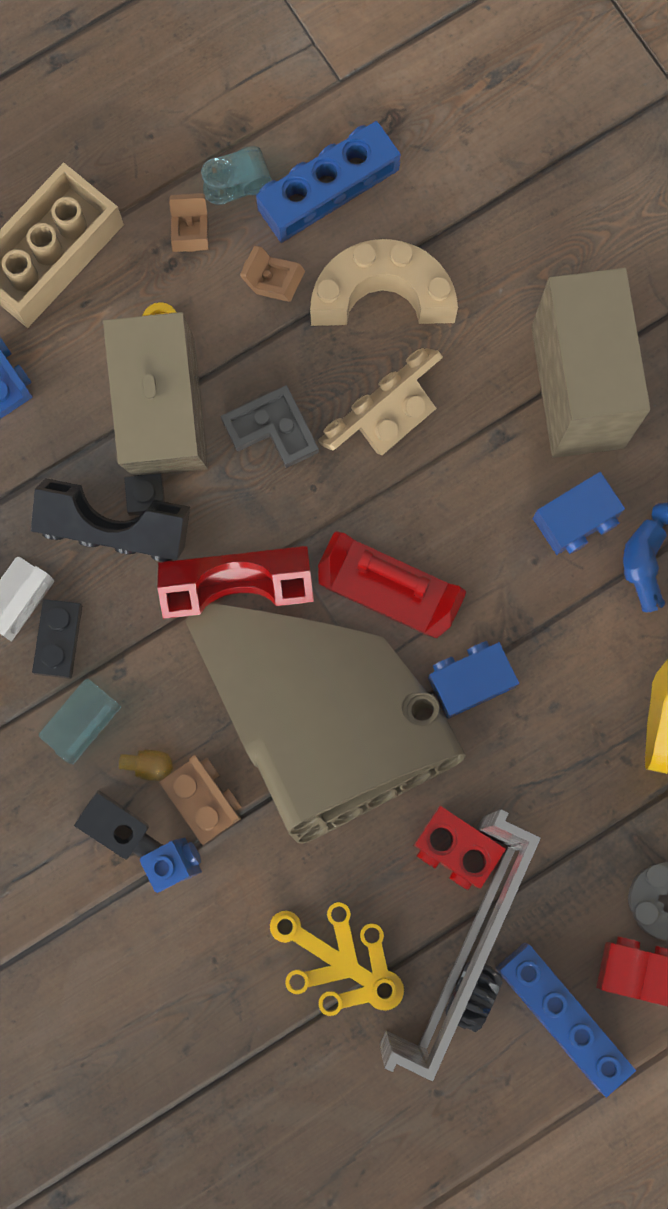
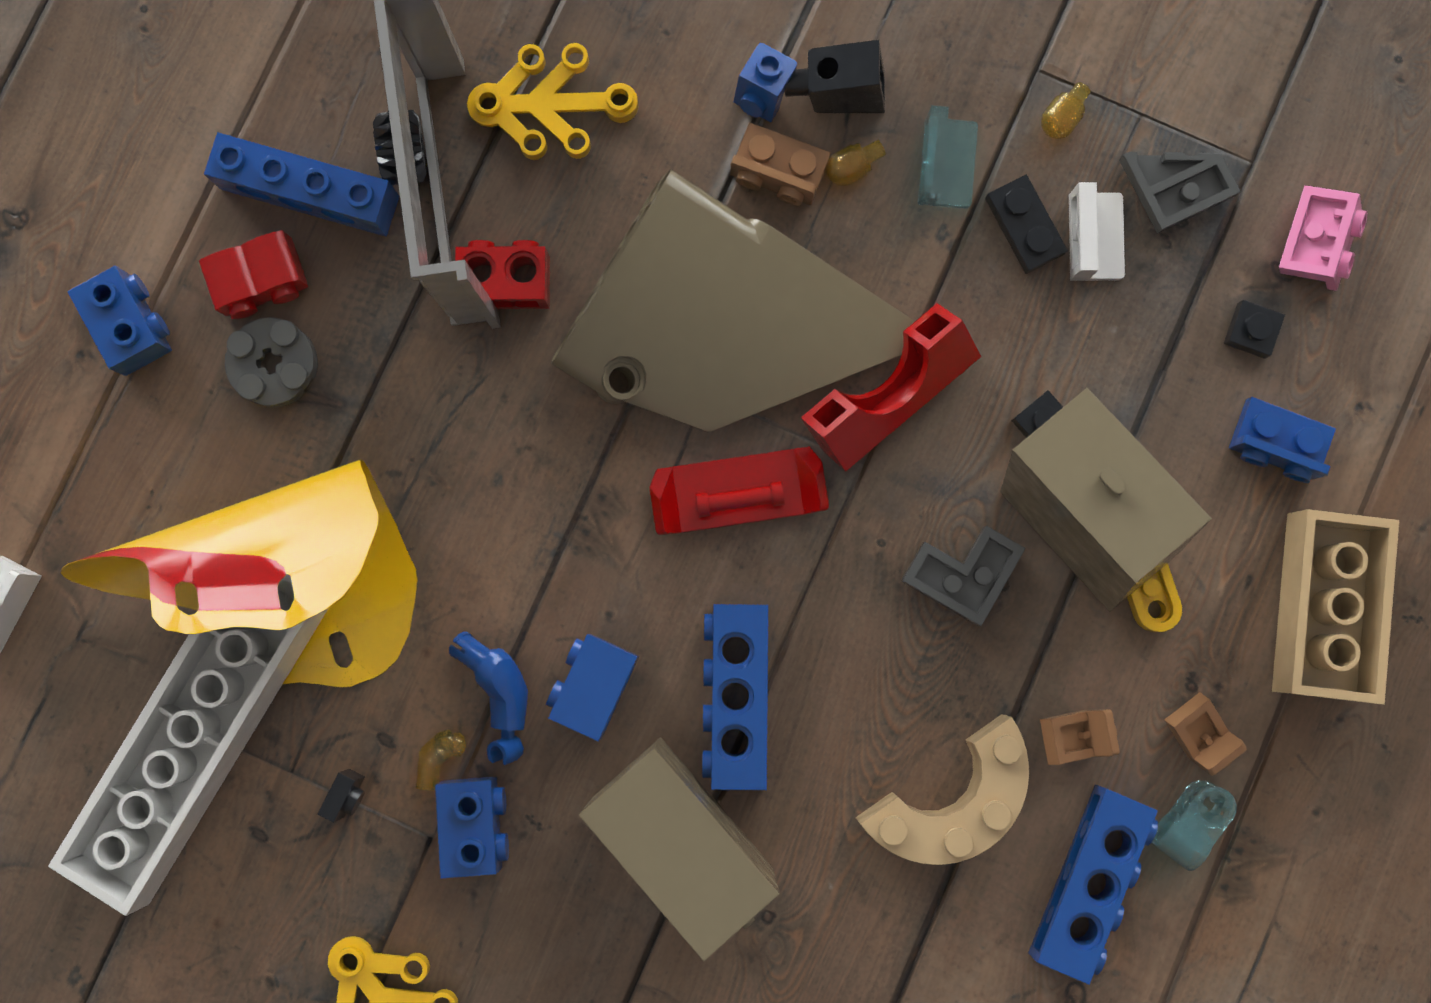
camera: 145 degrees right, 5 degrees up
(64, 512) = (1106, 345): black arch -> none
(390, 409) = (859, 673): tan bracket -> none
(472, 679) = (593, 445): blue brick -> none
(508, 396) = (748, 768): none -> blue brick

